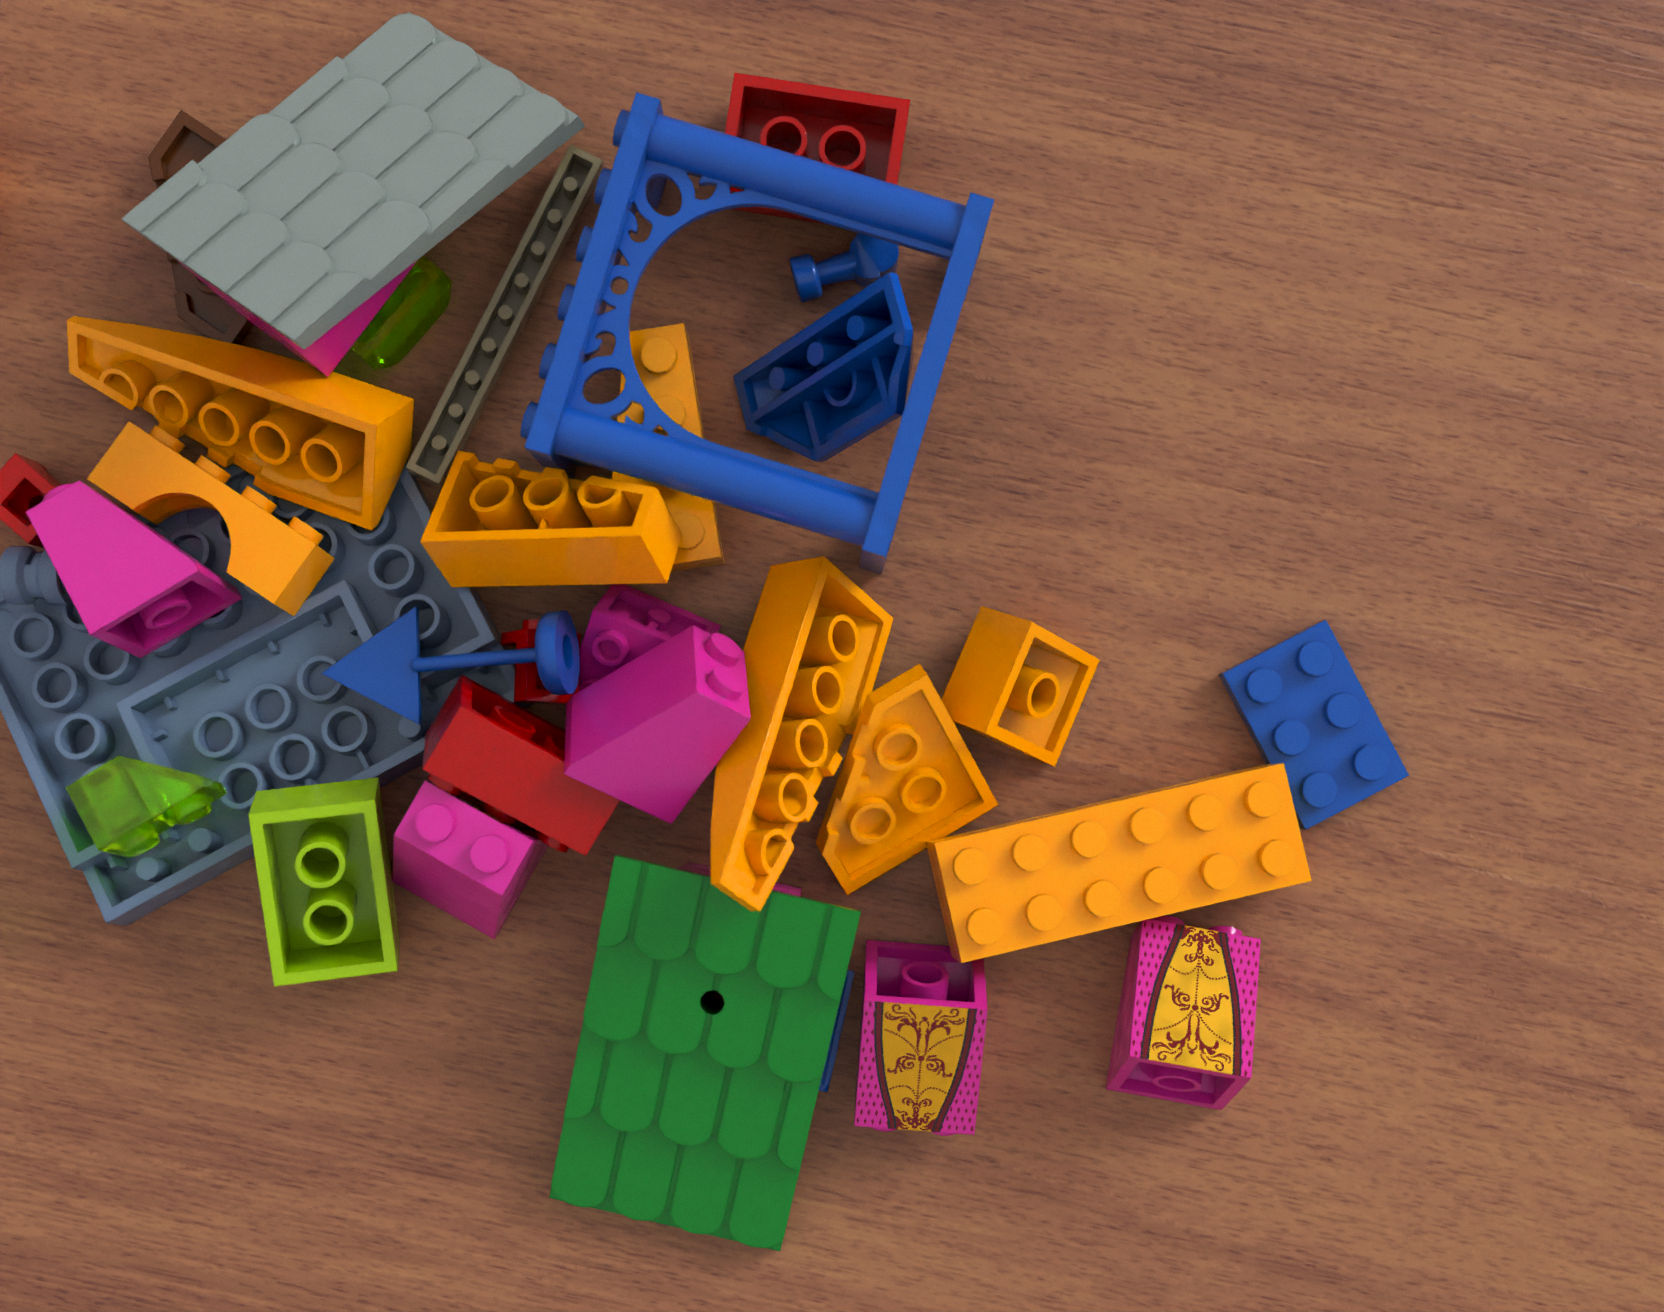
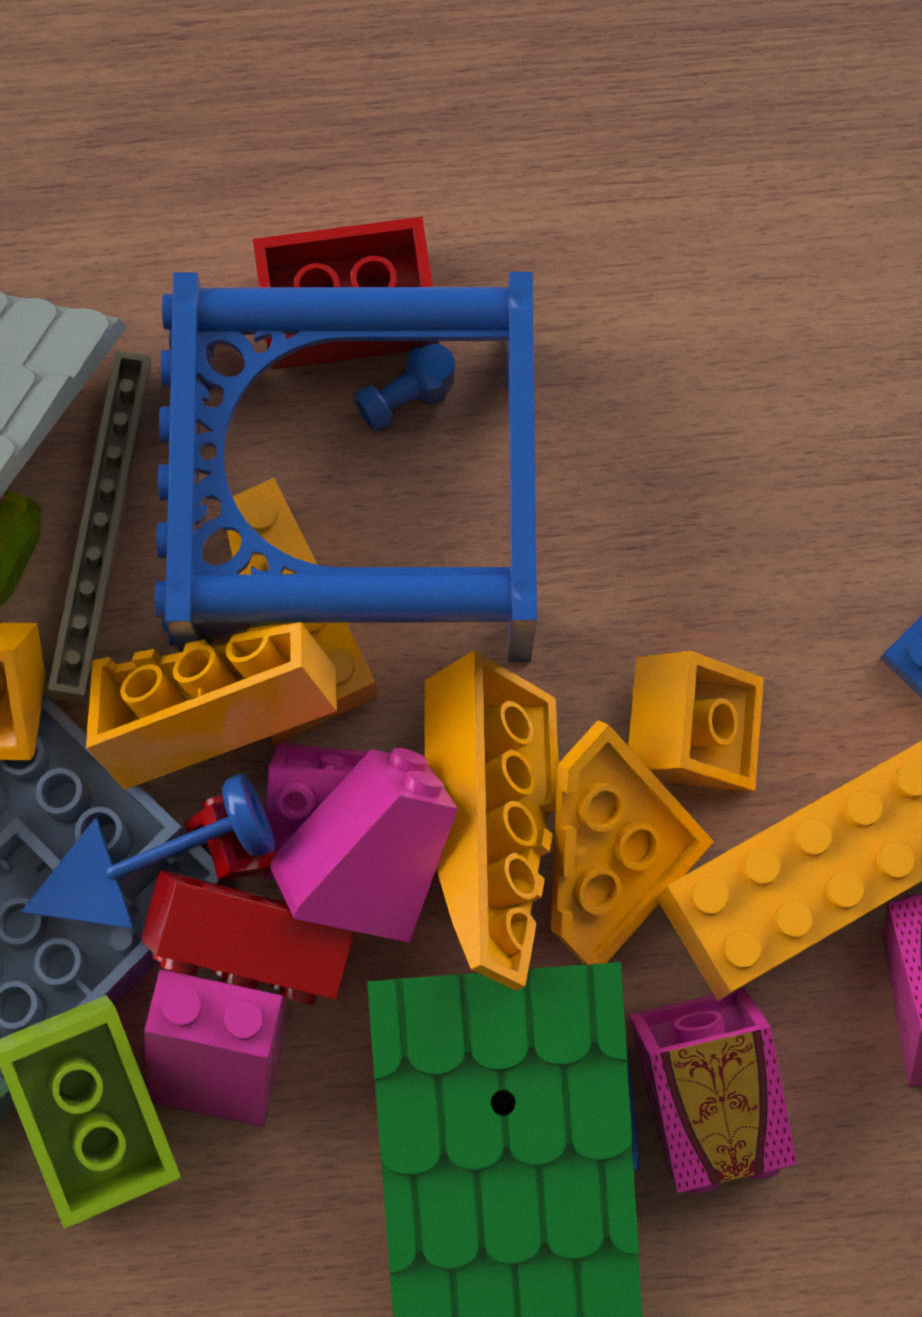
camera: 20 degrees left, 10 degrees down
(834, 376) = (431, 482): blue wedge -> none

